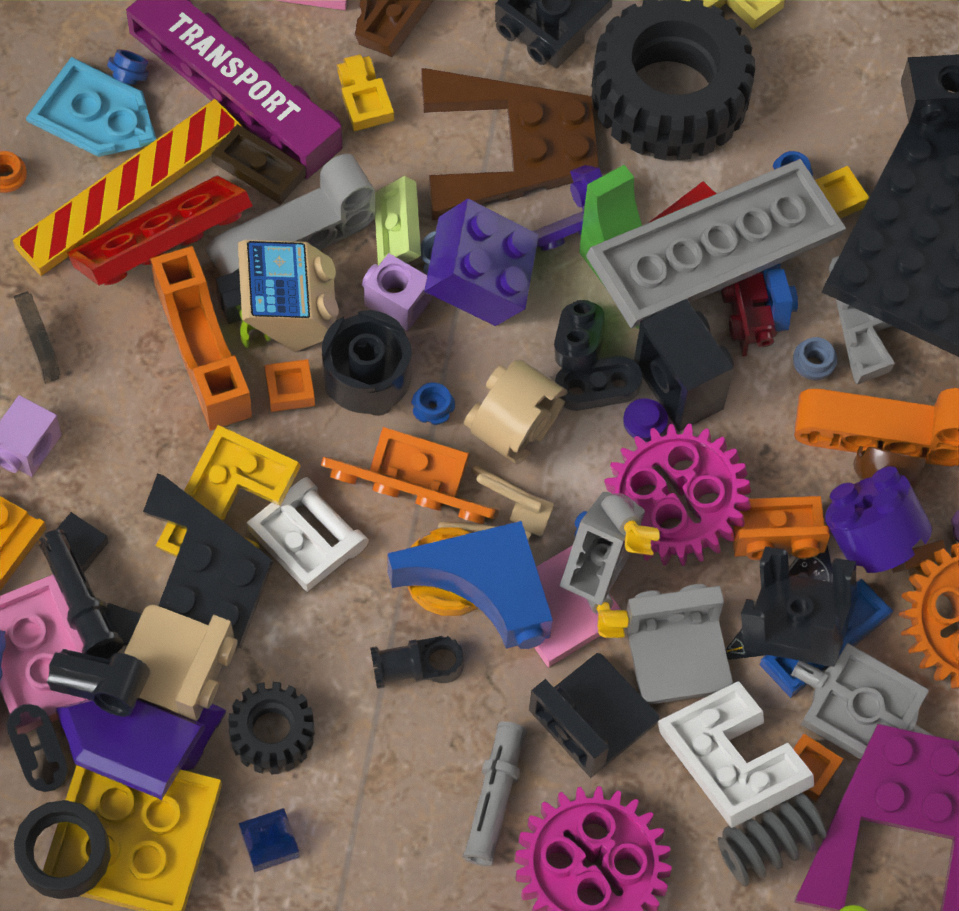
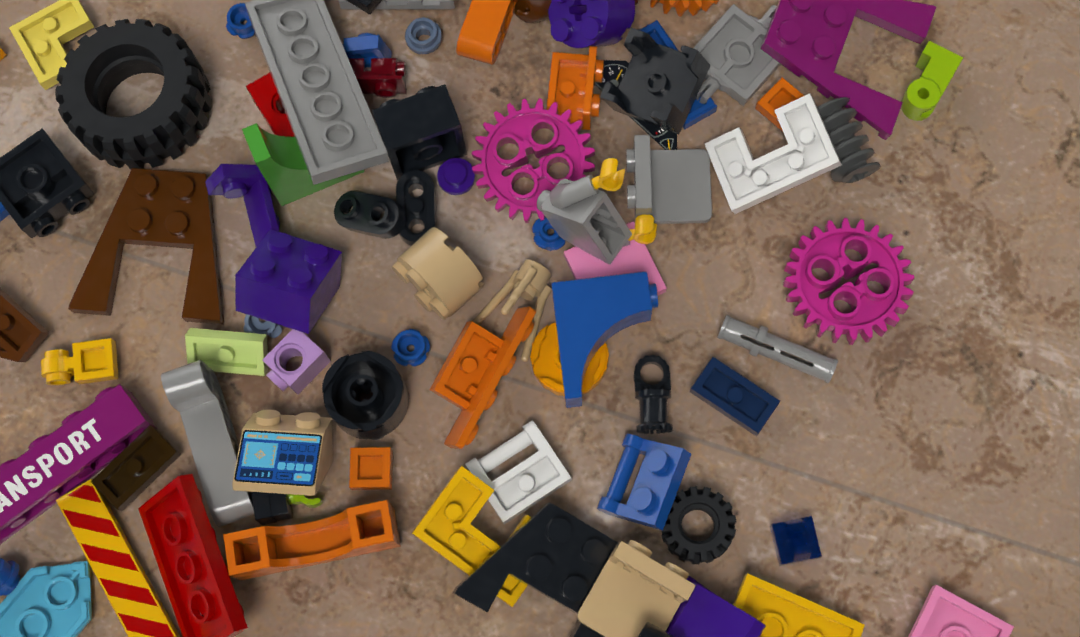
camera: 70 degrees left, 10 degrees up
(312, 662) = (654, 486): none -> blue plate
(428, 751) = (734, 396): none -> dark blue plate
(592, 713) = (717, 260): black bracket -> none

